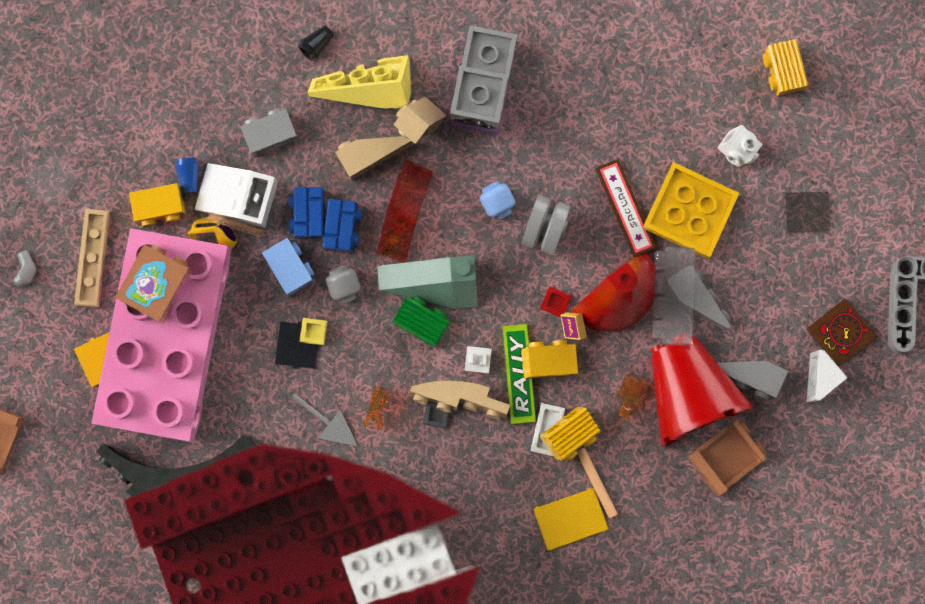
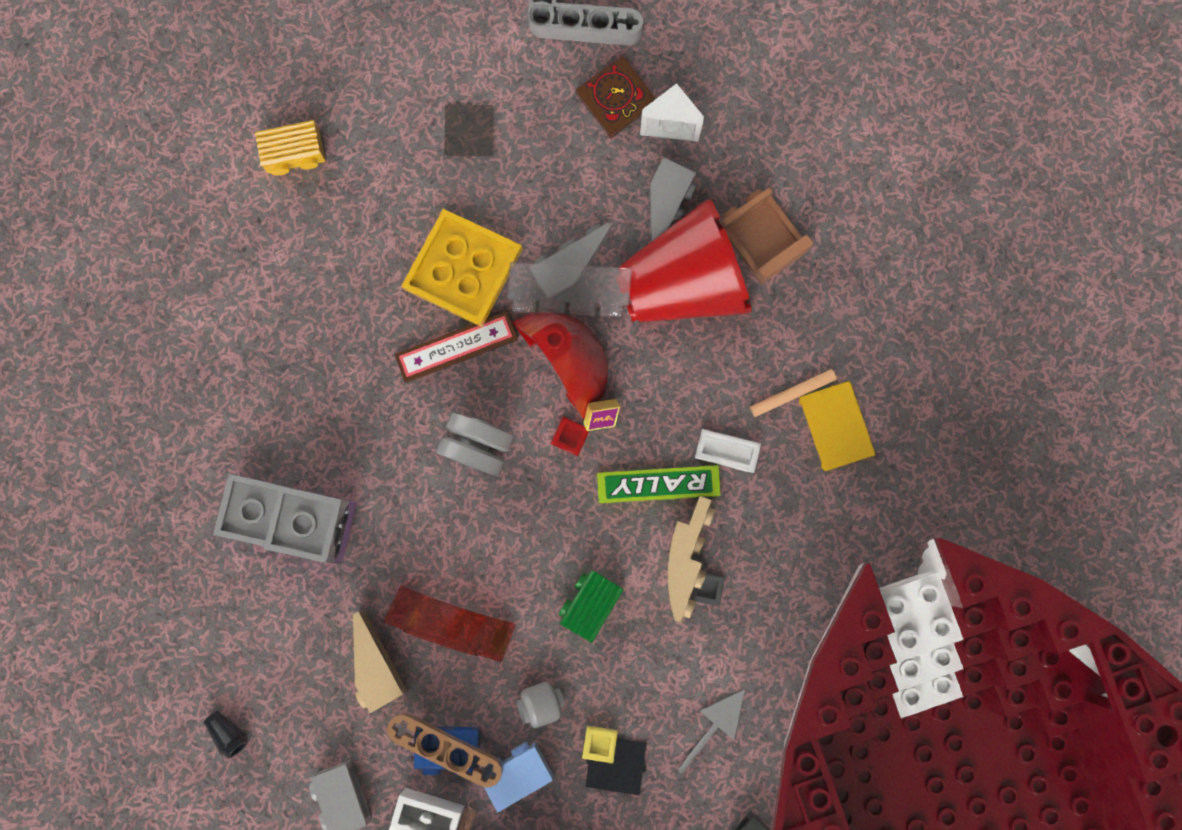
camera: 90 degrees left, 0 degrees up
(310, 211) = (442, 755): none -> medium nougat beam
(341, 226) = (465, 705): blue brick -> none
(375, 87) = (288, 655): light yellow wedge -> none
(378, 401) = (689, 662): clear orange plate -> none
(419, 119) = (333, 603): tan brick -> none
(435, 281) = (540, 585): sand green wedge -> none
(478, 359) = (639, 534): white tile -> none
(497, 200) = (440, 505): light blue head -> none
(549, 361) = (644, 445): yellow brick -> none
(570, 434) = (735, 422): yellow brick -> none
(631, 393) = (684, 347): clear orange plate -> none
(740, 146) = (385, 204): white brick -> none

